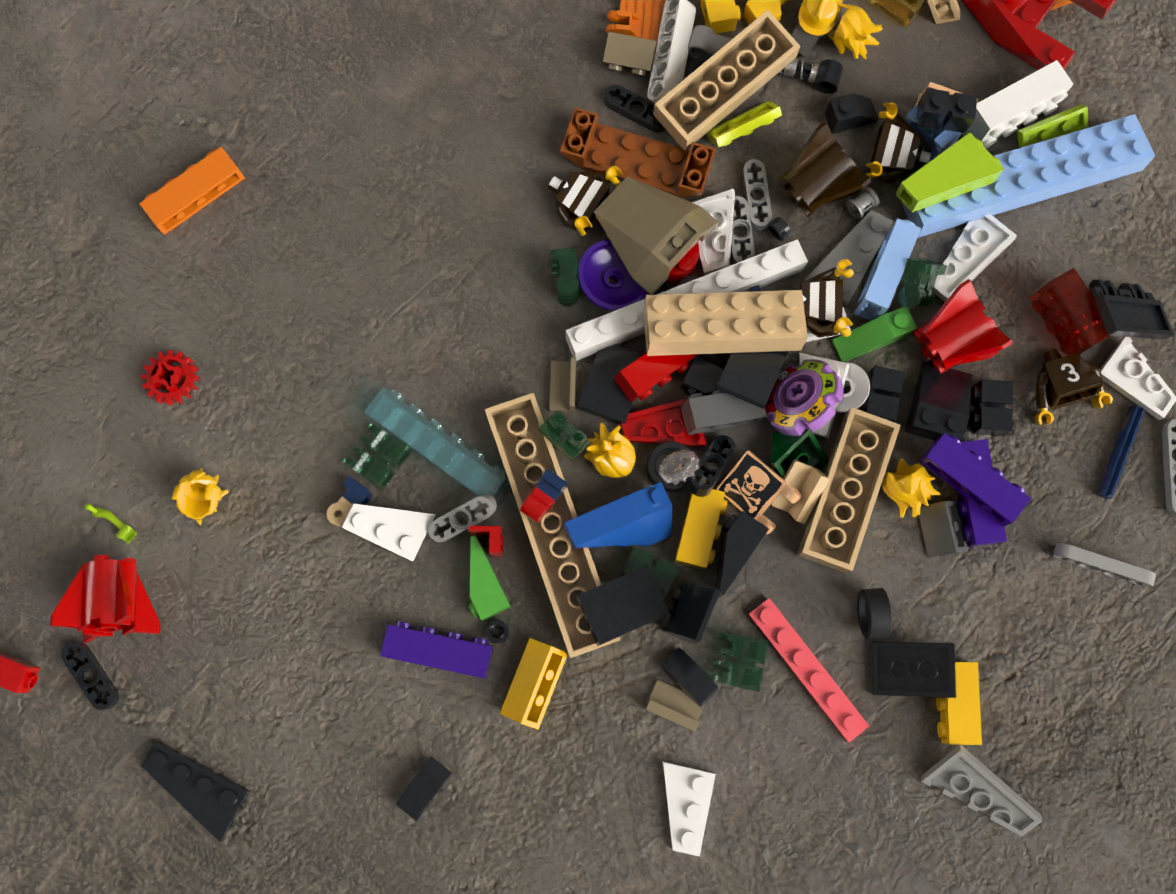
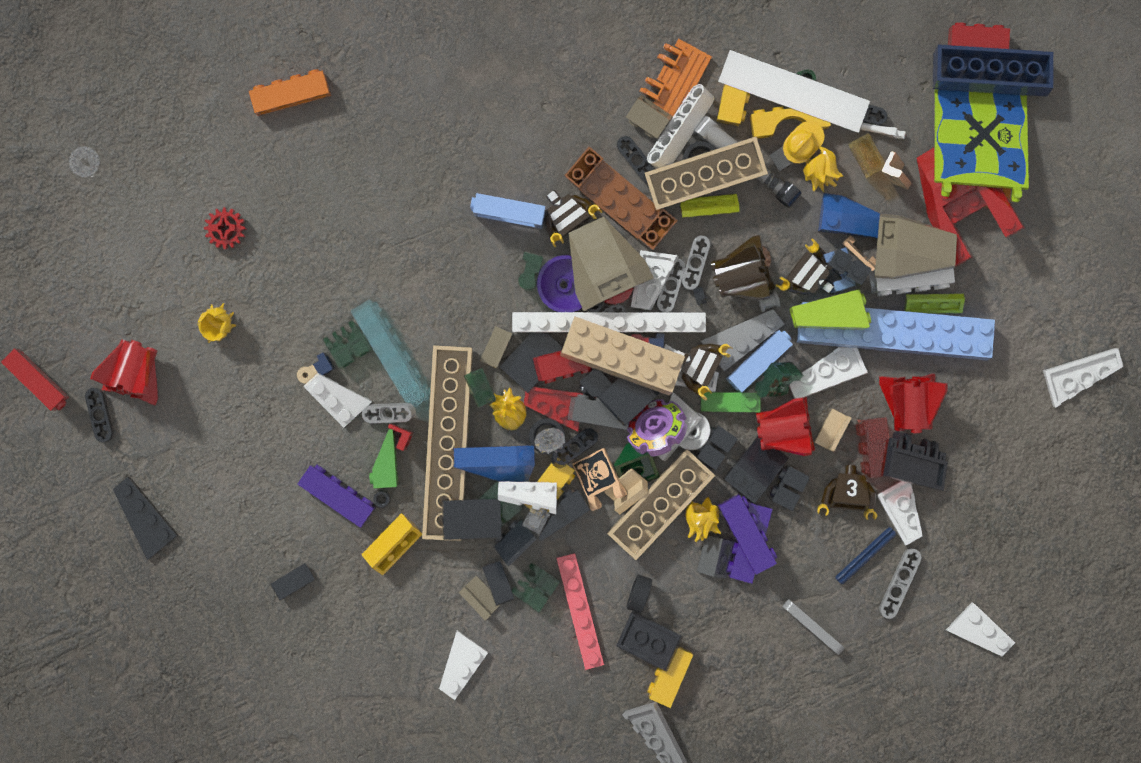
camera: 25 degrees right, 10 degrees up
(125, 531) = (156, 326): lime piece -> none
(510, 217) = (508, 210): none -> light blue window
(543, 496) = (448, 424): leg -> none
(690, 538) = (531, 493): none -> white wing
(705, 569) = (536, 519): none -> clear brick
(850, 113) = (793, 229): black slope -> none
(905, 77) = (847, 217): none -> blue wedge
(1005, 65) = (912, 248): none -> dark tan wedge
(1011, 316) = (832, 430): none -> tan panel
(1092, 241) = (913, 400): none -> red brick

